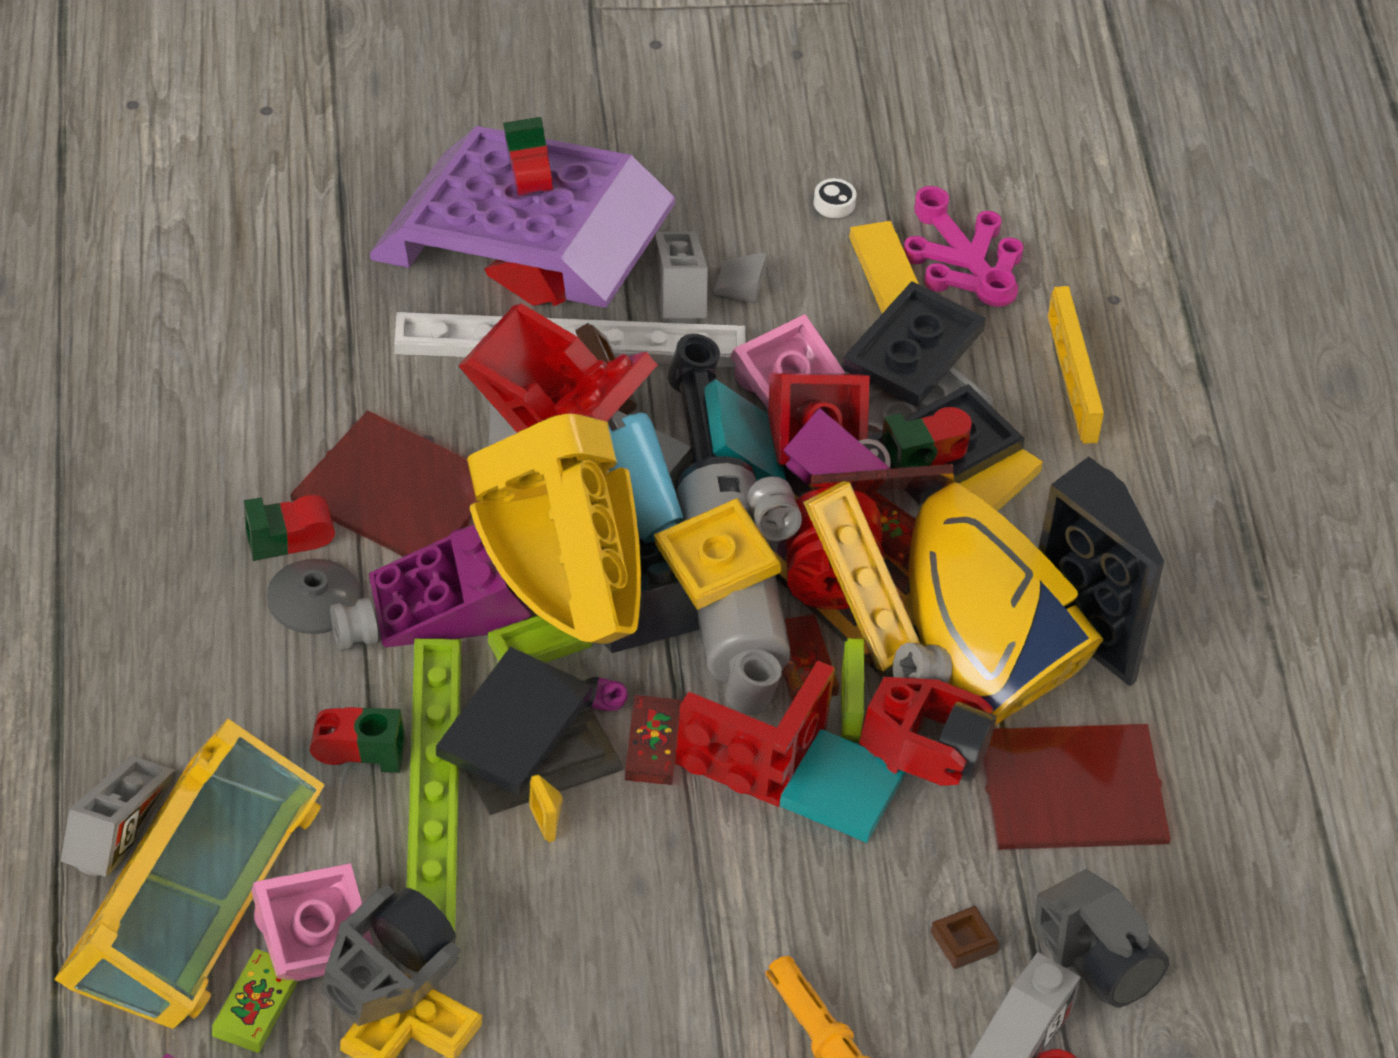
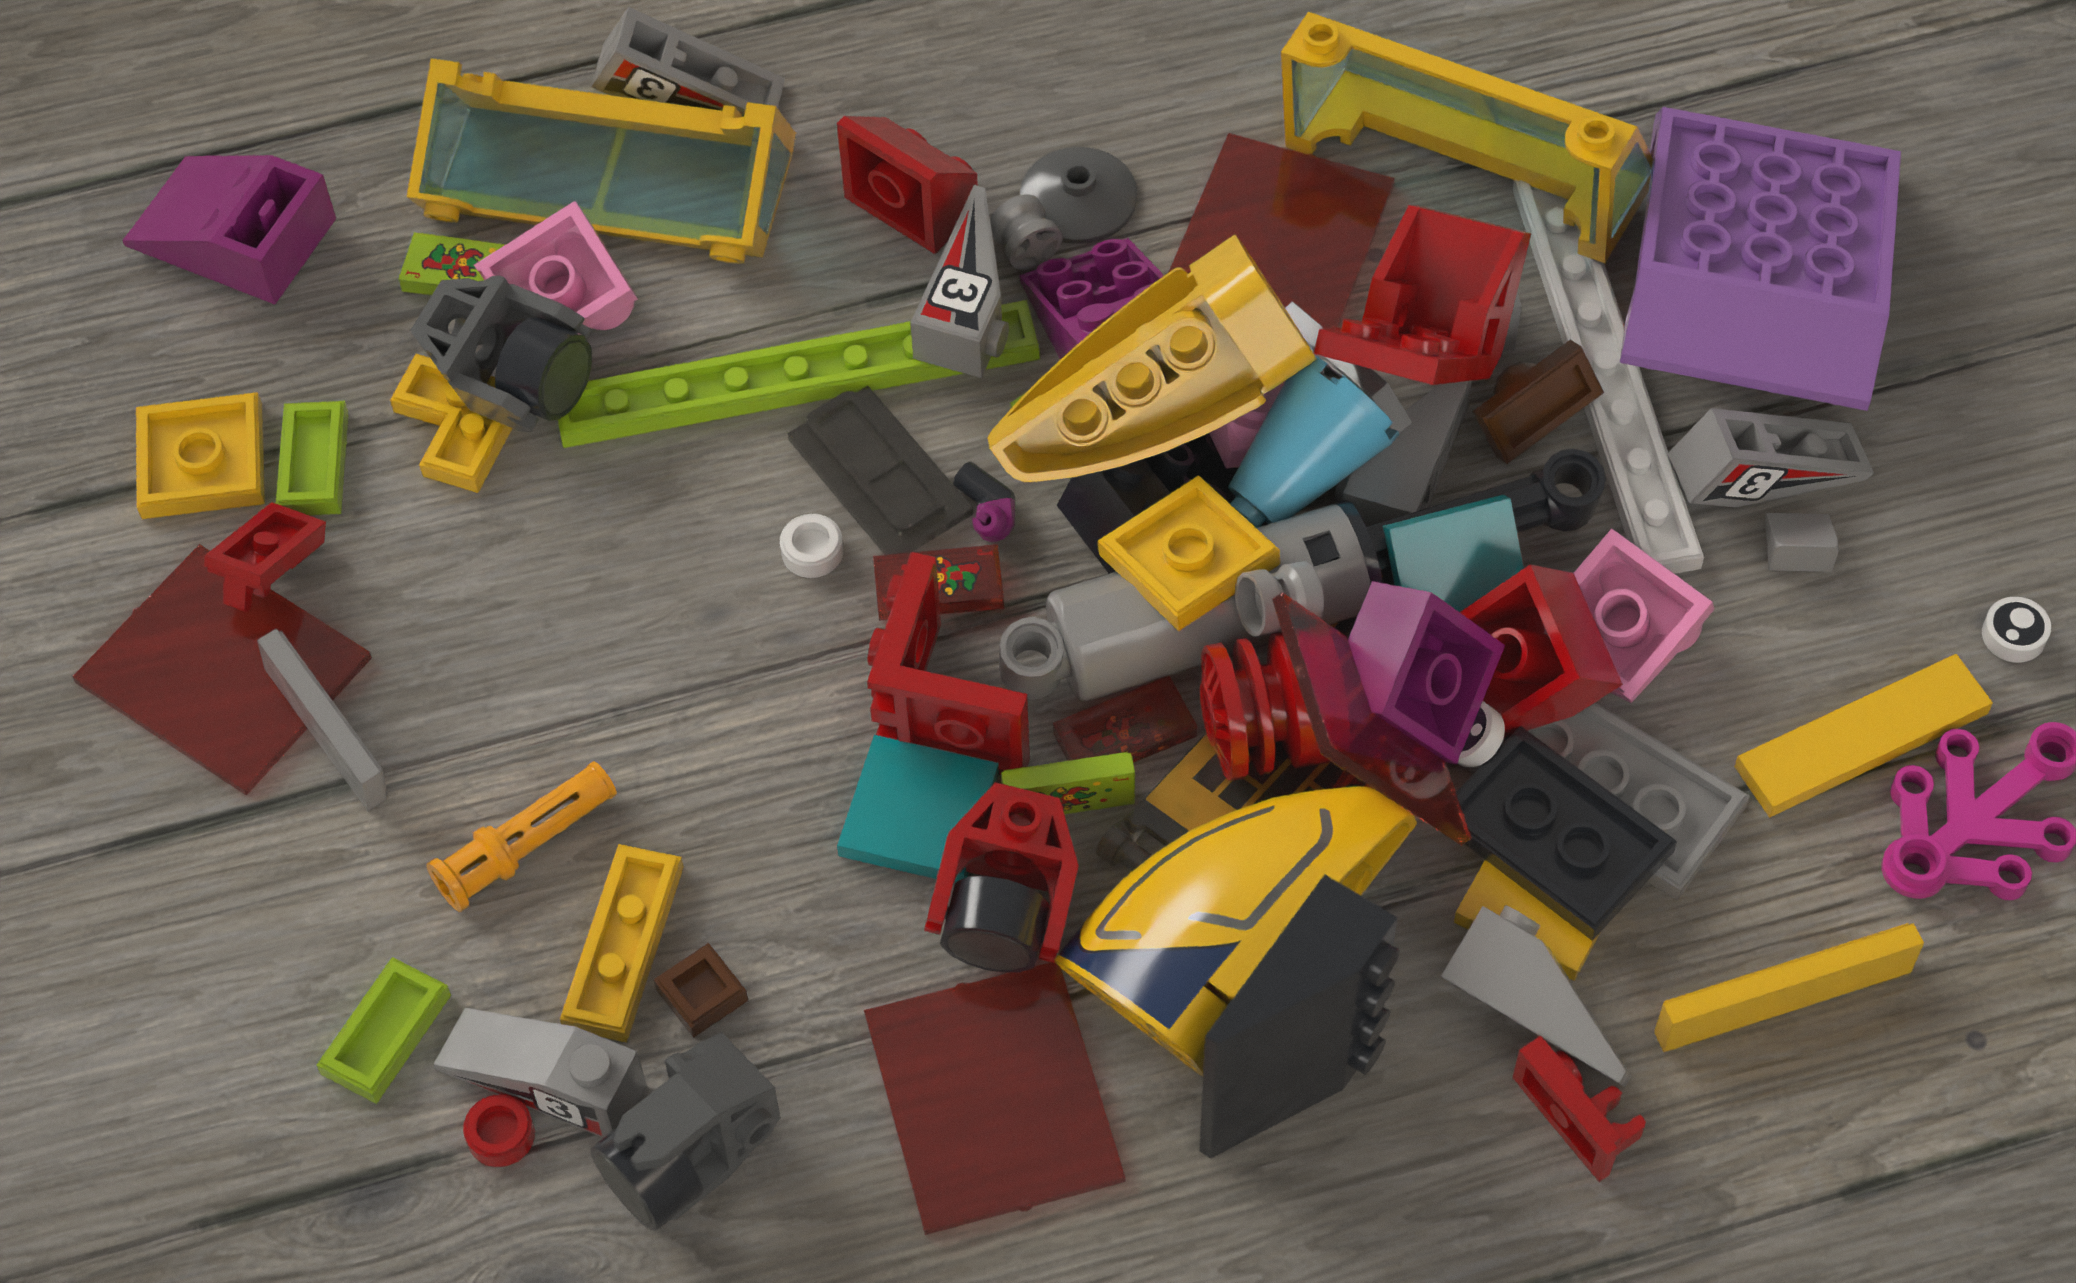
camera: 85 degrees right, 10 degrees up
(286, 682) = (903, 179): none -> red slope
(287, 526) = (1161, 131): leg -> none
(360, 737) = (850, 279): leg -> none
(411, 657) = (960, 310): none -> light grey slope
(438, 281) = (1354, 79): none -> yellow windscreen
(514, 721) = (906, 418): black tile -> none
(528, 155) = (1820, 197): leg -> none
(545, 806) = (793, 484): yellow slope -> none
(598, 811) = (811, 545): none -> white tile
(861, 572) = (1195, 723): yellow tile -> none
(914, 343) = (1729, 758): black plate -> none
(916, 979) = (622, 942): none -> yellow tile
(922, 662) = (1111, 853): light grey wheel -> none
(927, 439) = (1515, 790): leg -> none
(1030, 482) = (1524, 981): none -> light grey slope
(1155, 480) = (1557, 1091): none -> red plate

